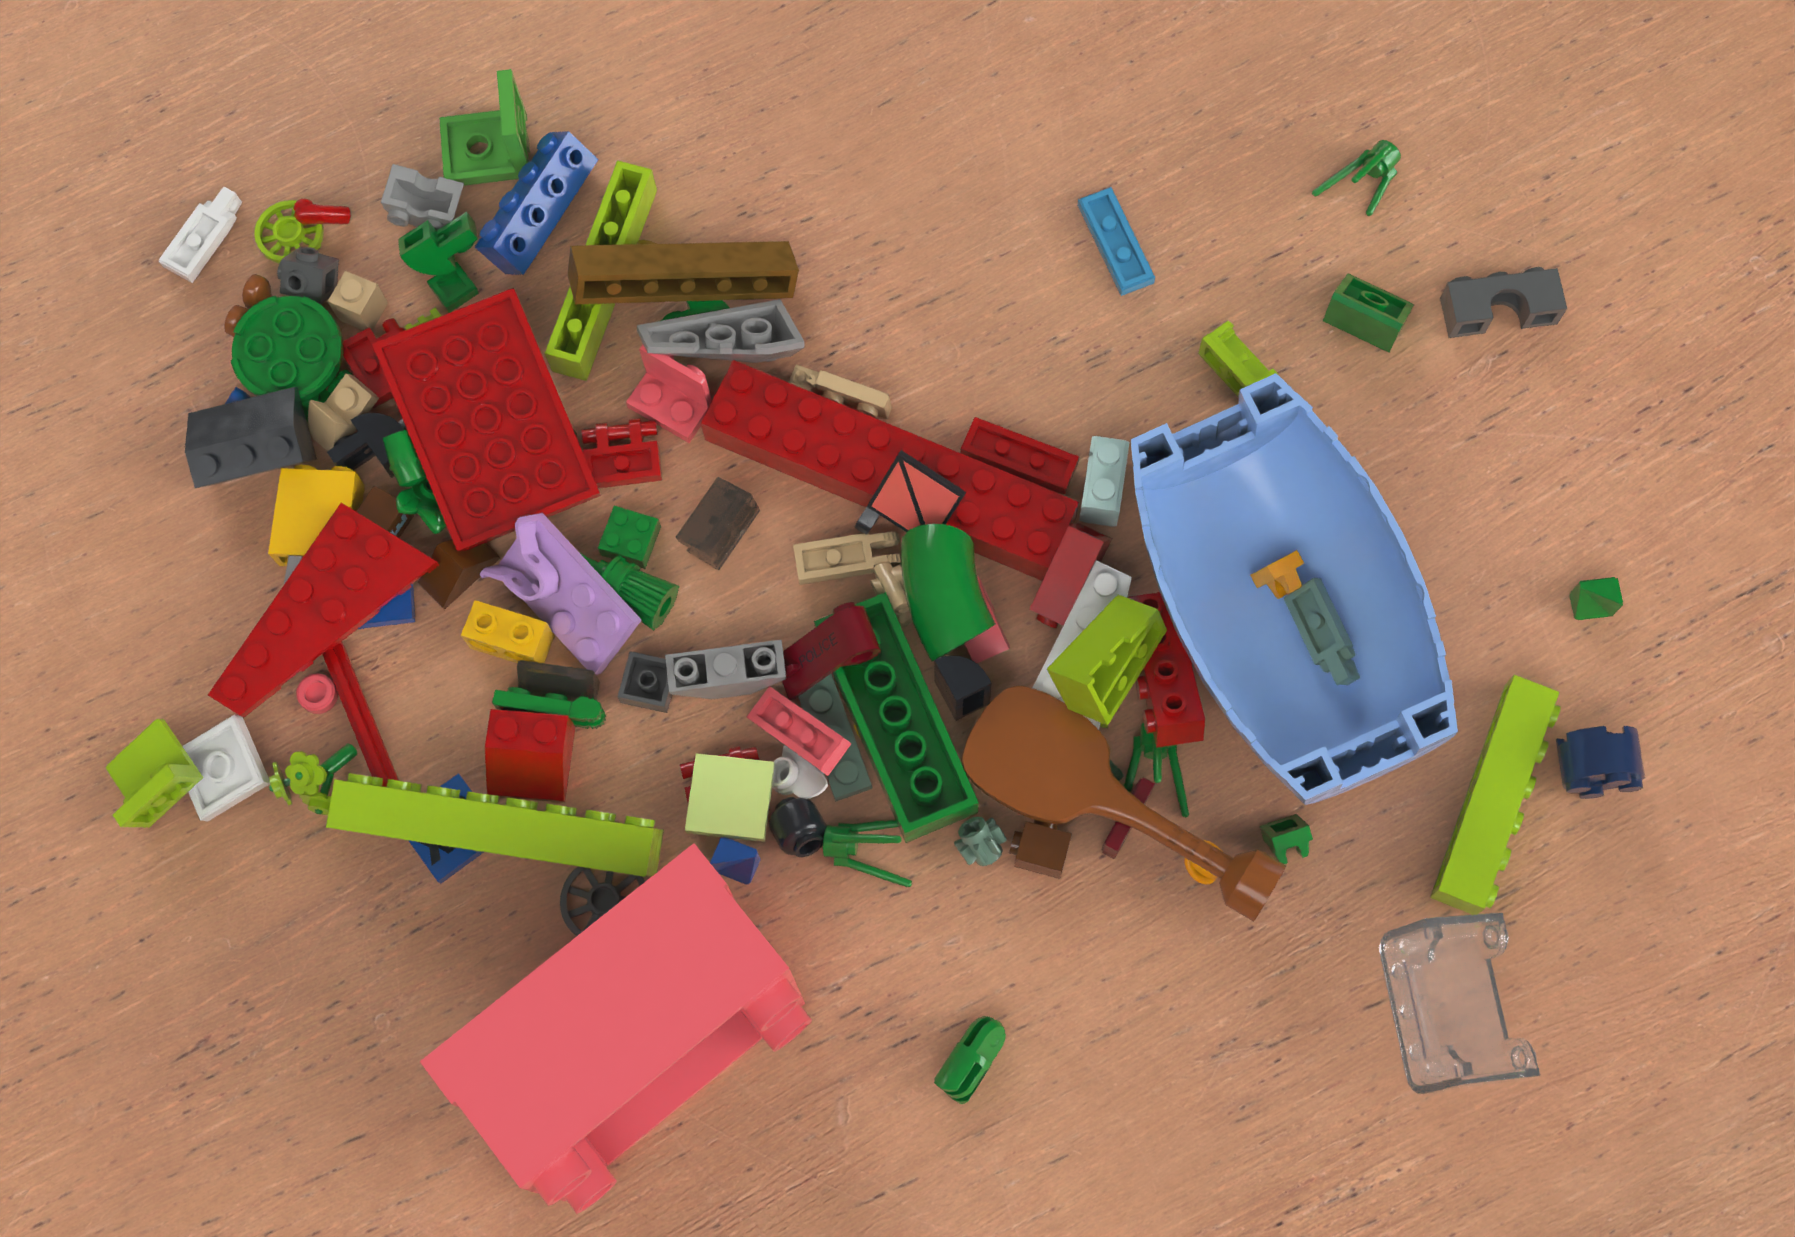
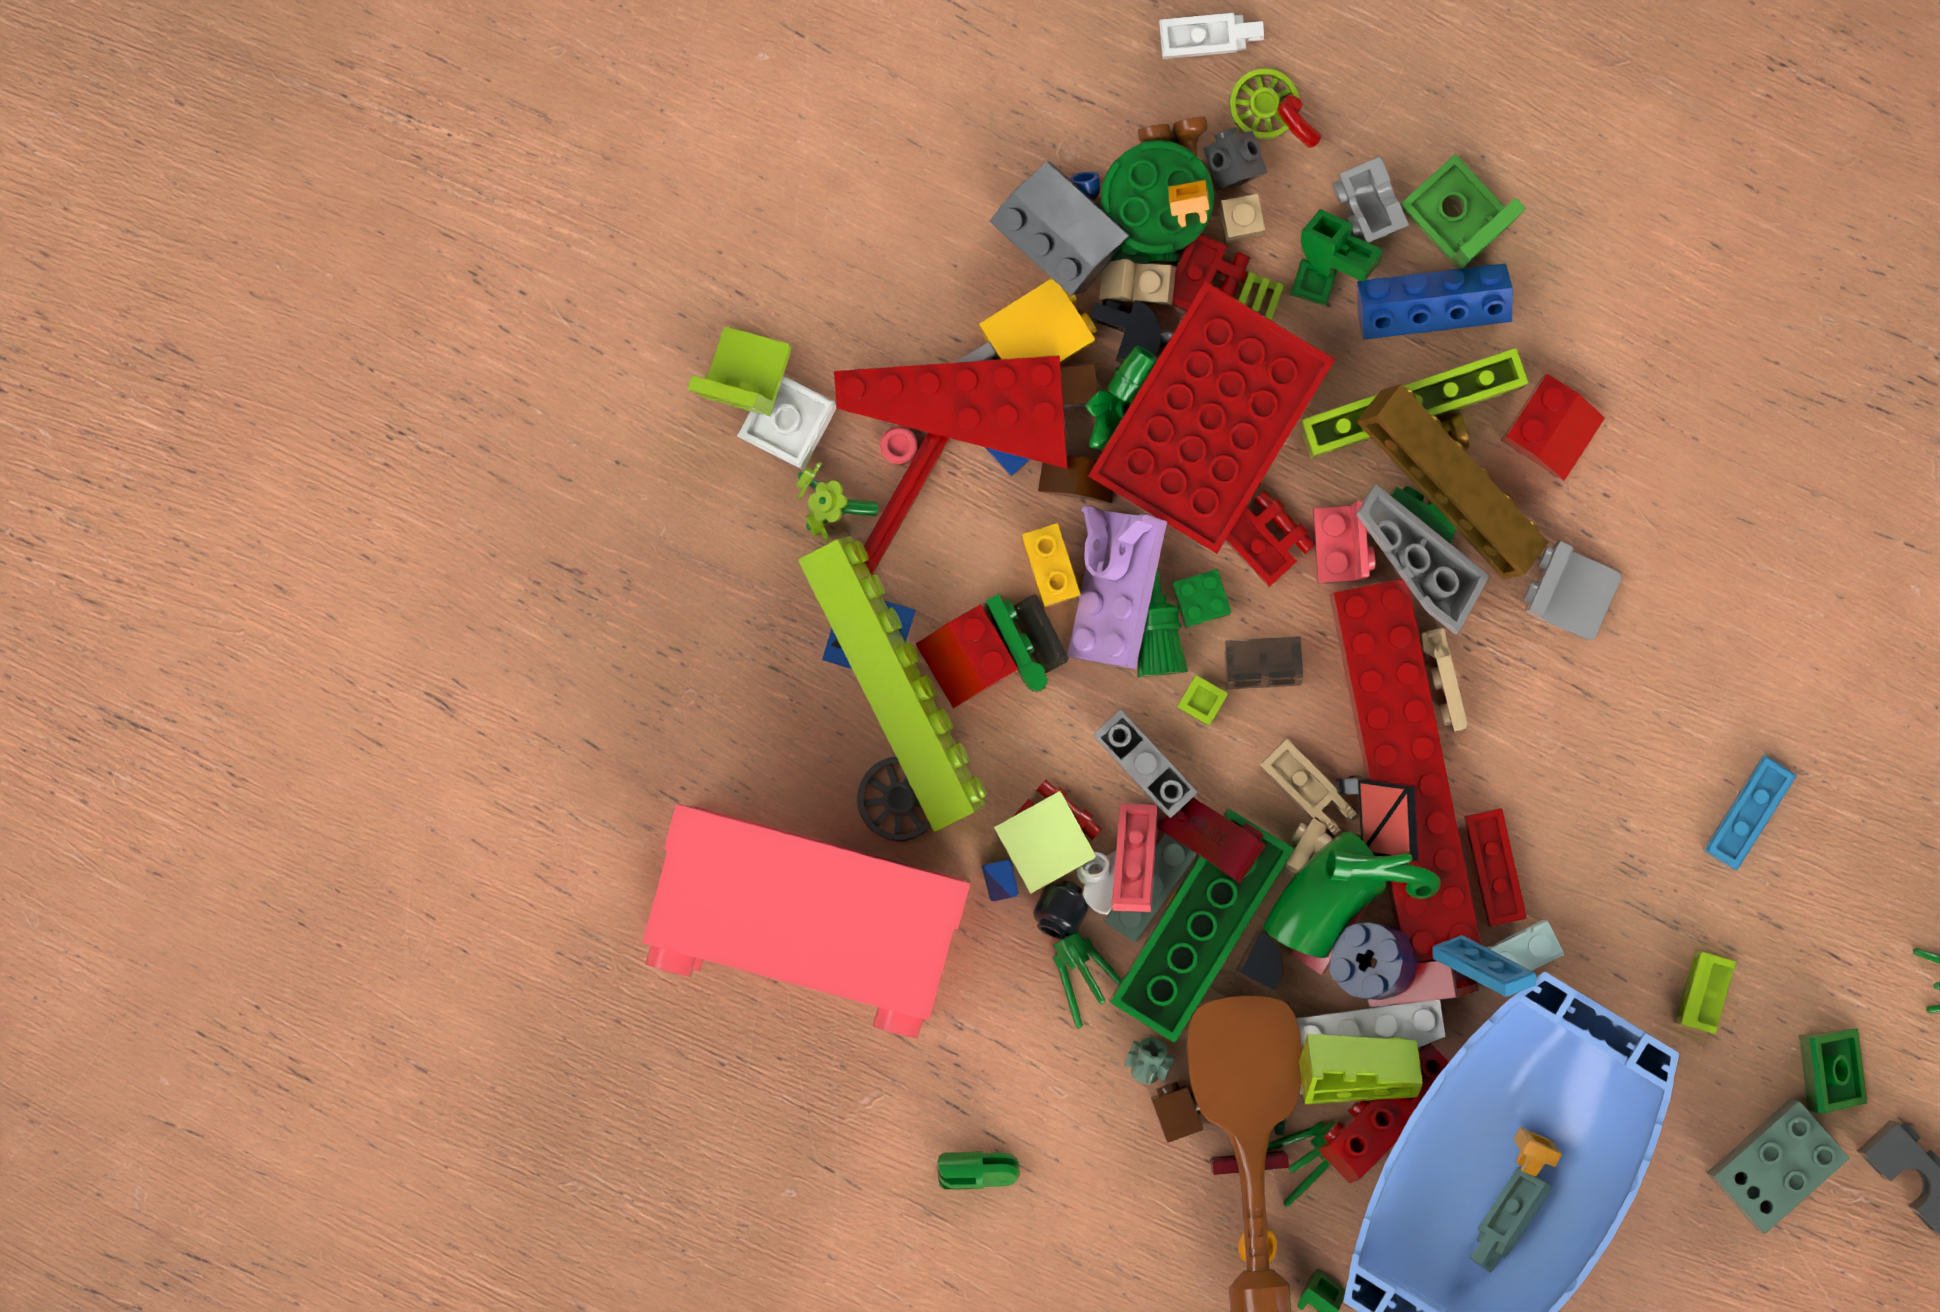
camera: 50 degrees right, 15 degrees up
(302, 317) = (1189, 199): none -> light orange tile
(645, 683) = (1091, 704): dark grey piece -> none
(702, 184) = (1553, 427): none -> red slope
(711, 591) = (1202, 700): none -> lime plate
(840, 254) = (1571, 591): none -> light grey bracket
(926, 546) = (1344, 866): none -> green plant
(1004, 583) = (1353, 956): none -> brick
(1092, 491) = (1484, 965): none -> dark azure tile
(1421, 398) = (1778, 1164): none -> sand green piece

